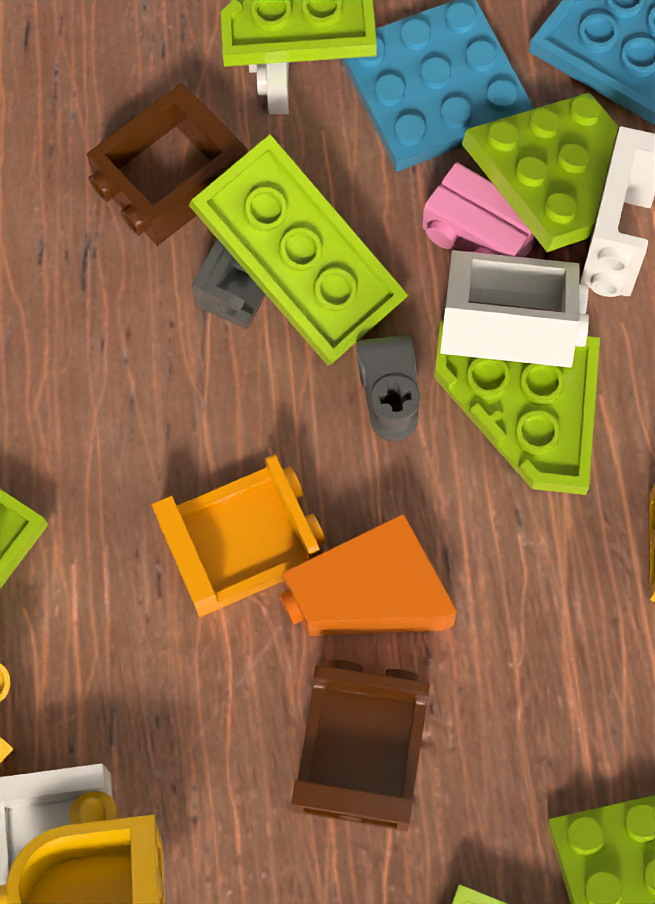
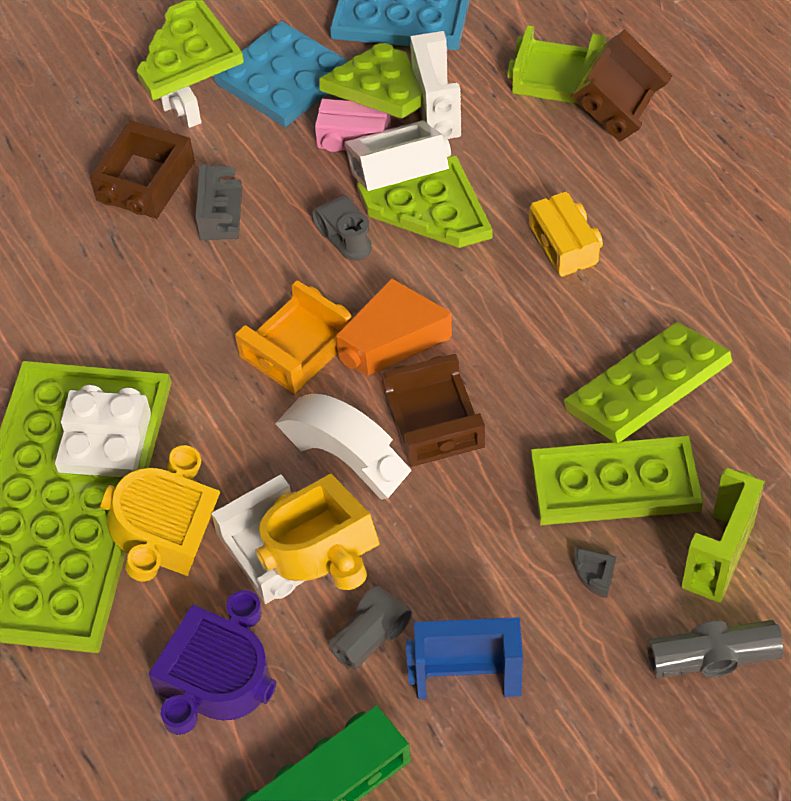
camera: 25 degrees left, 15 degrees down
(214, 747) = (349, 435): none -> white arch
(298, 249) = (251, 175): lime plate -> none

